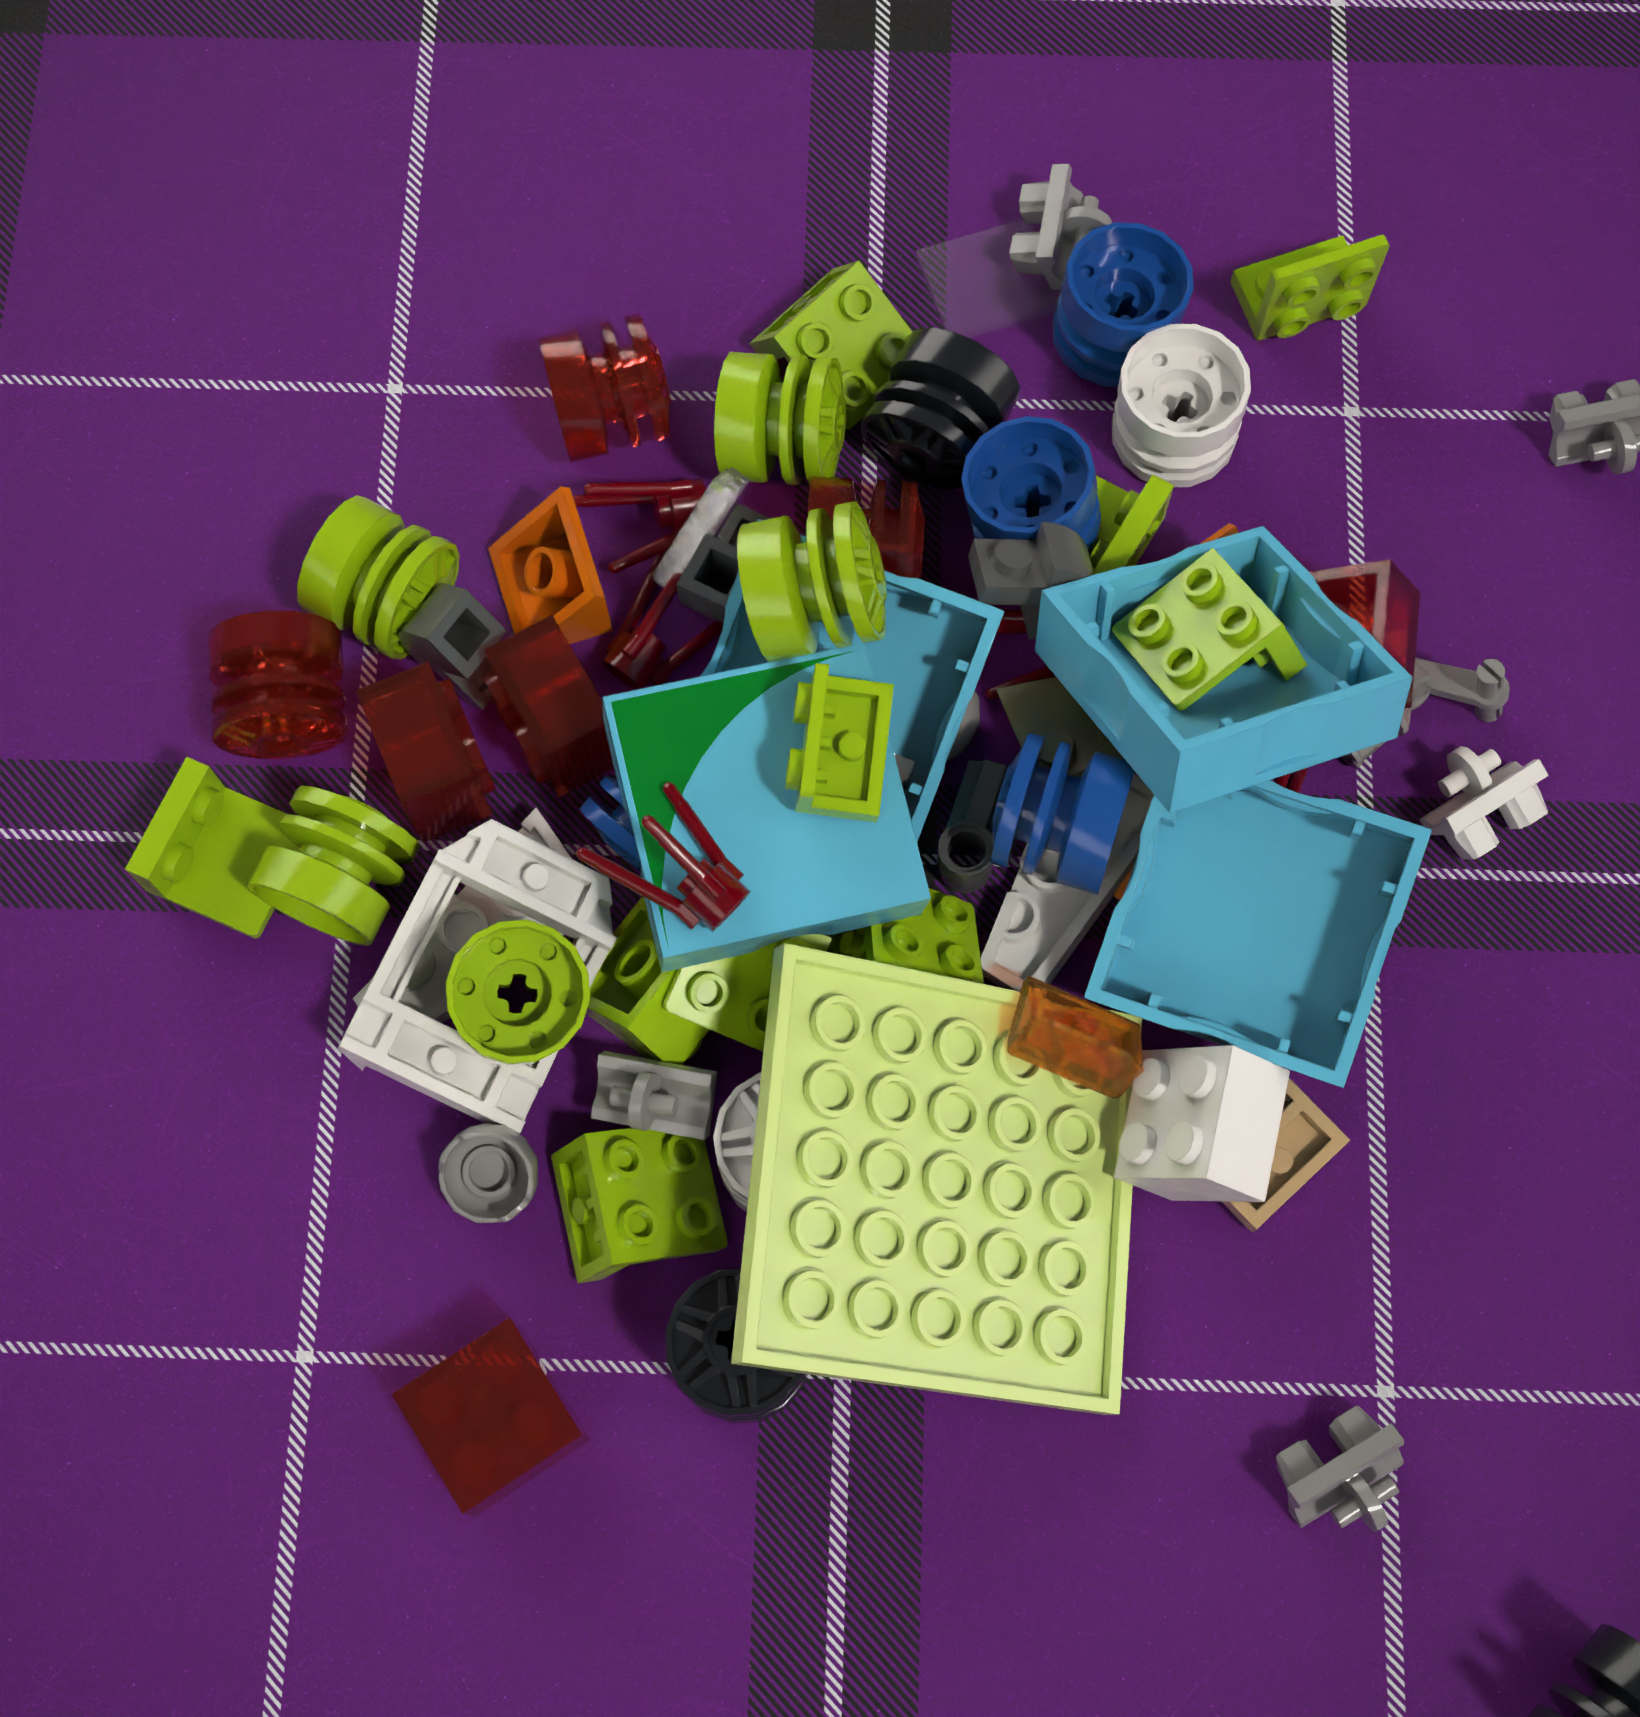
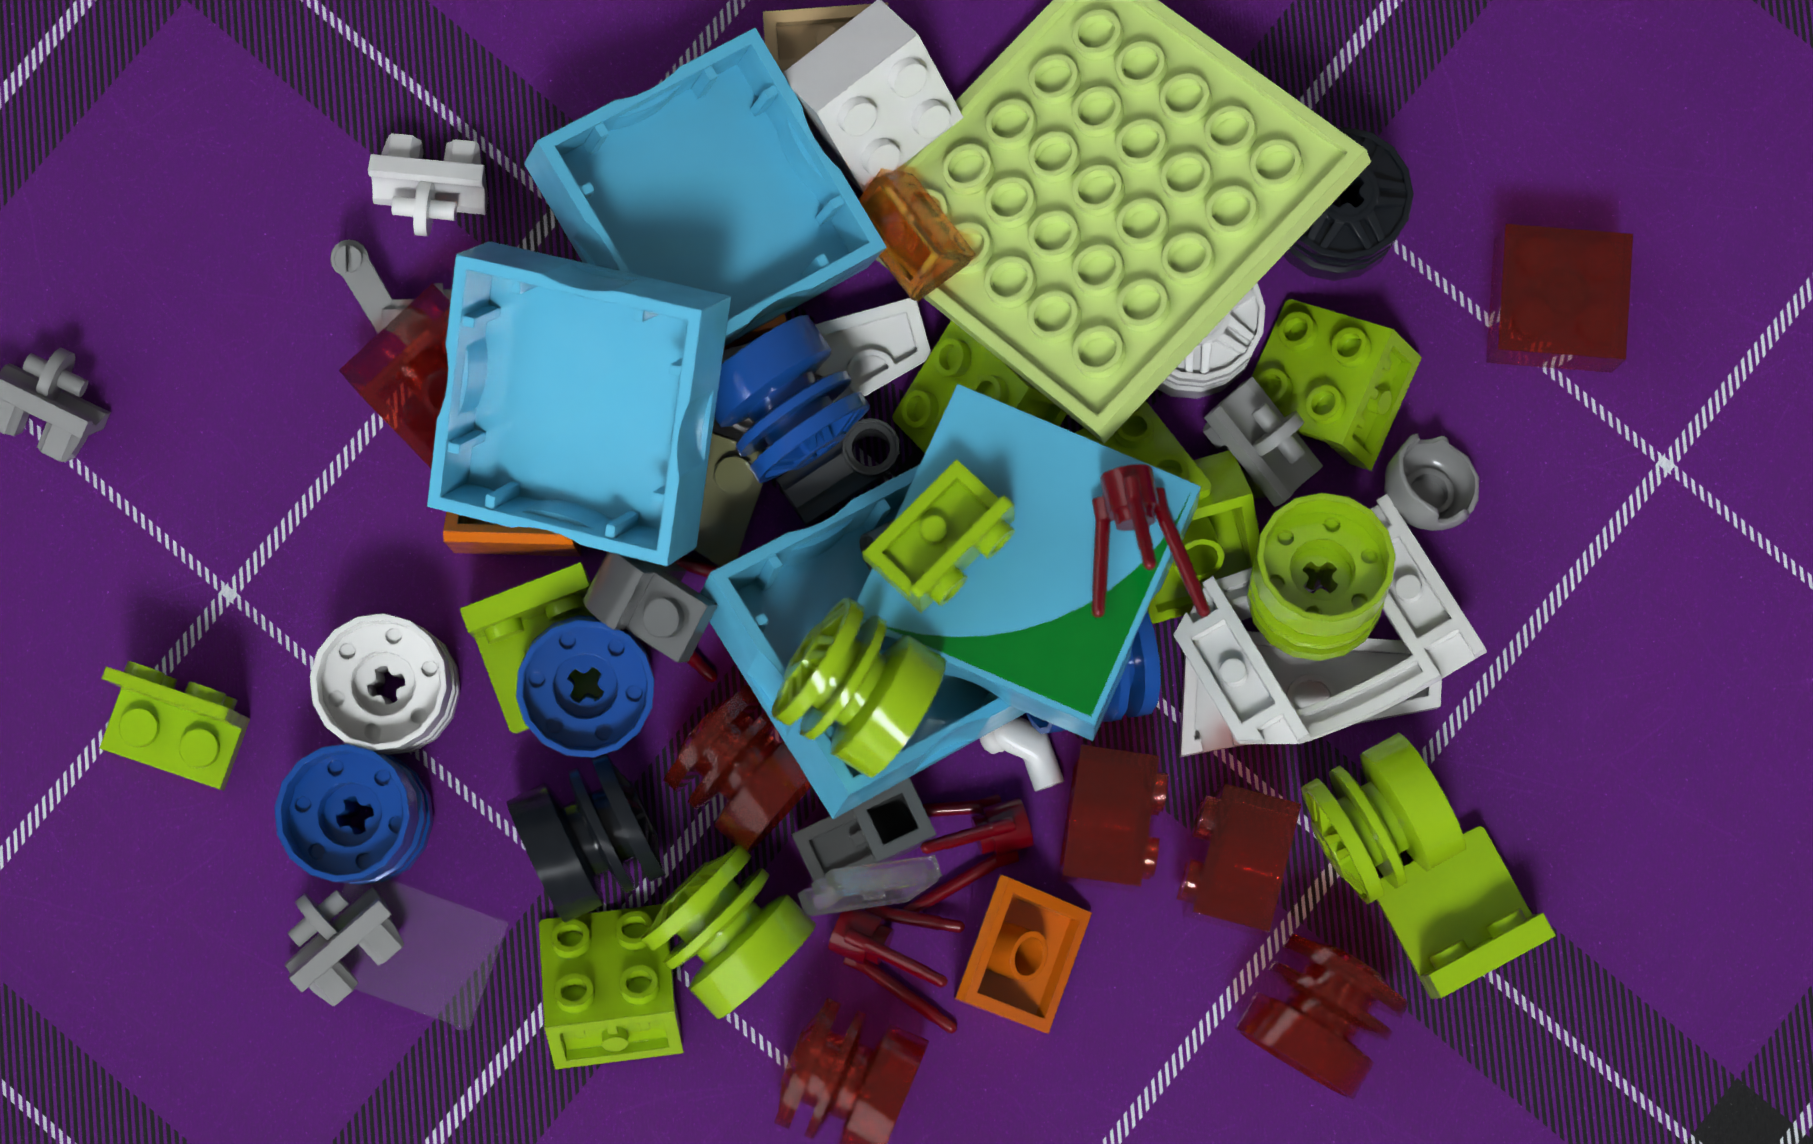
camera: 145 degrees left, 10 degrees up
(373, 572) = (1169, 1050): lime wheel -> none
(452, 635) = (1147, 938): dark grey brick -> none
(1203, 631) = (562, 441): lime bracket -> none

